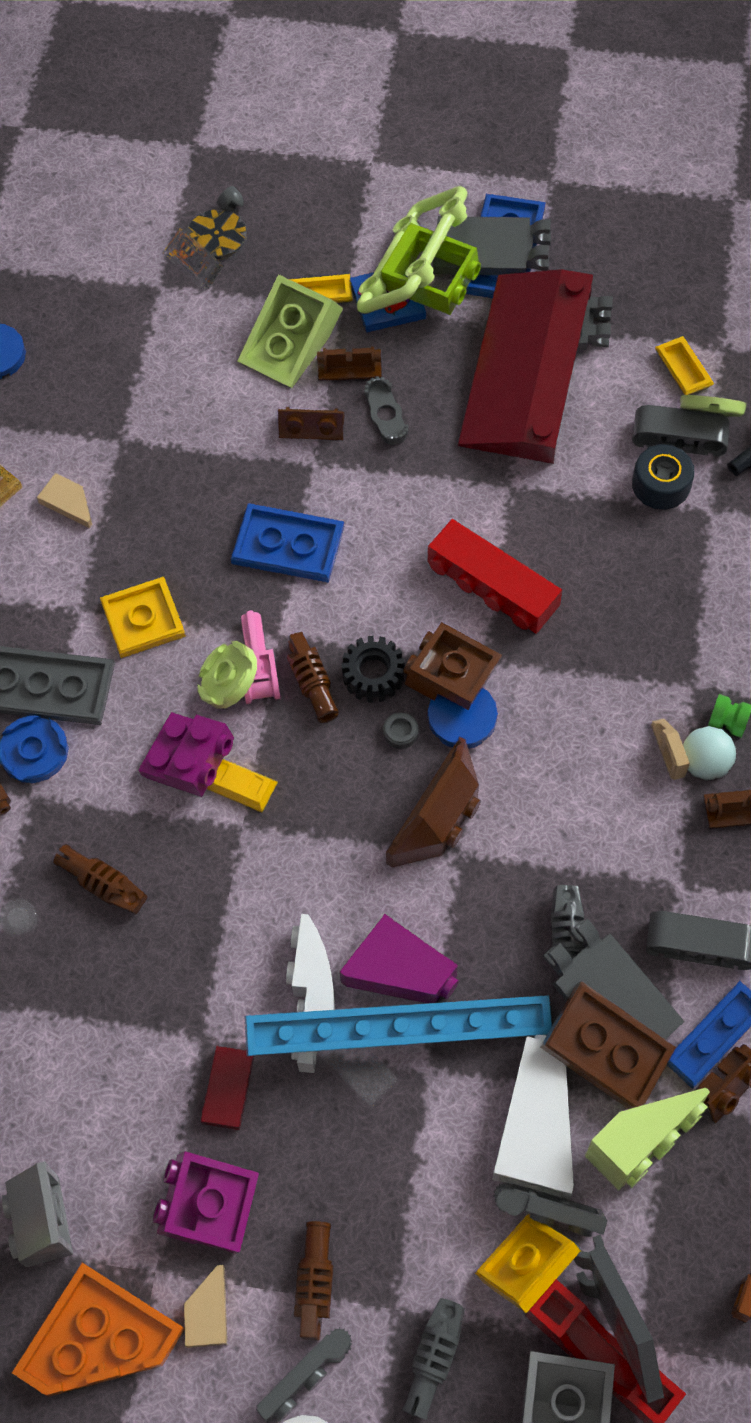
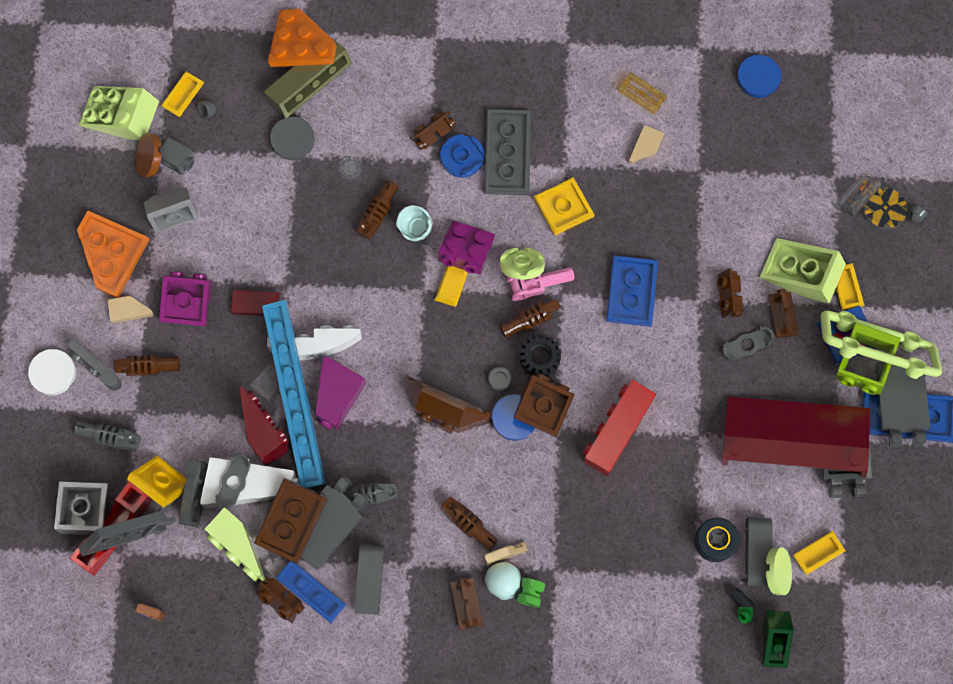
camera: 80 degrees right, 10 degrees up
(135, 822) = (414, 223): none -> light aqua hair
(455, 1085) = (265, 441): none -> dark red slope
(516, 1122) = (239, 467): none -> dark grey piece
(620, 792) = (468, 522): none -> reddish brown hinge

